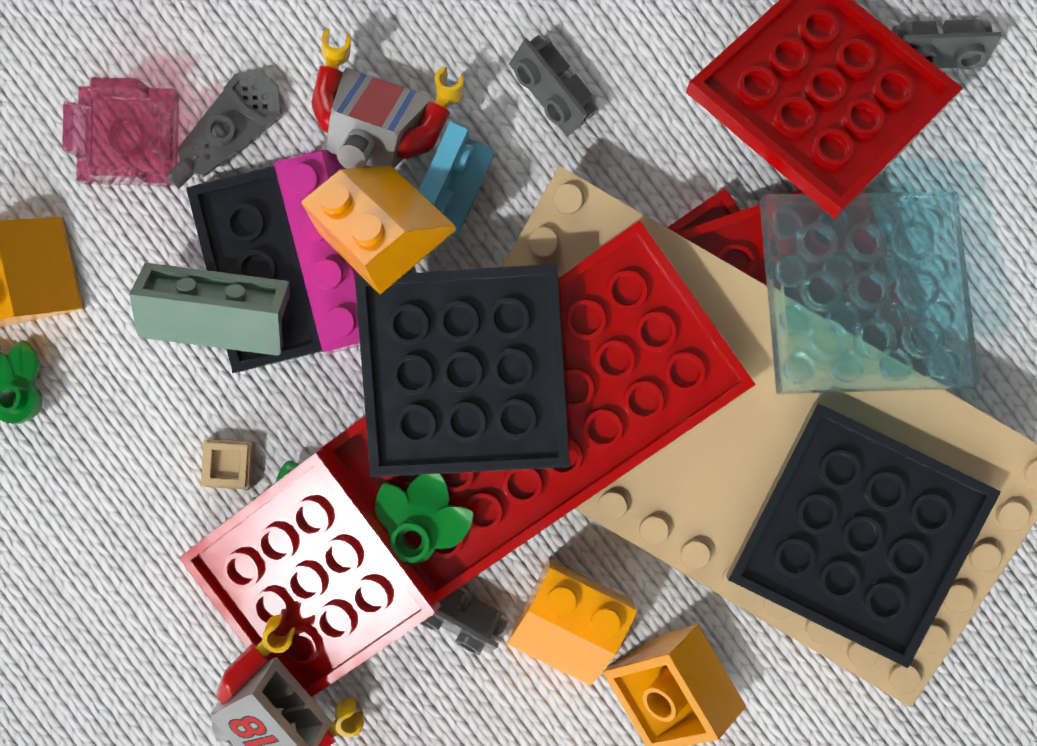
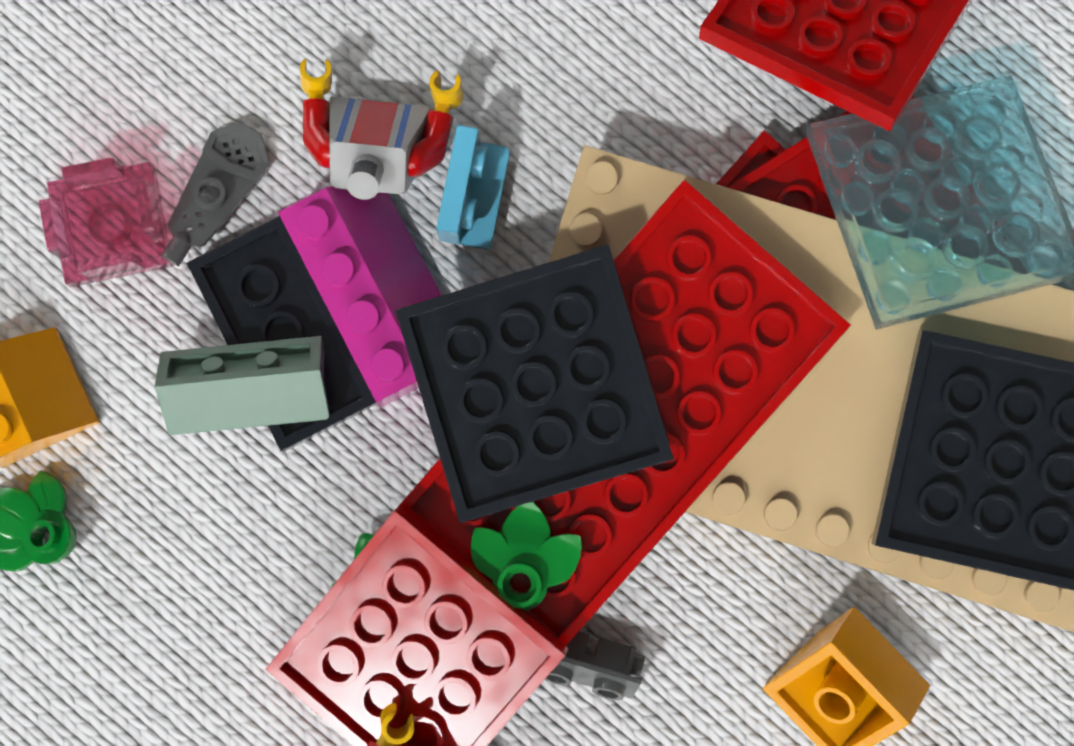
camera: 20 degrees left, 5 degrees down
(227, 464) = (295, 554): tan tile -> none
(376, 222) = (405, 247): light orange slope -> none
(538, 69) = (536, 52): dark grey hinge -> none
(572, 622) = (716, 641): light orange slope -> none

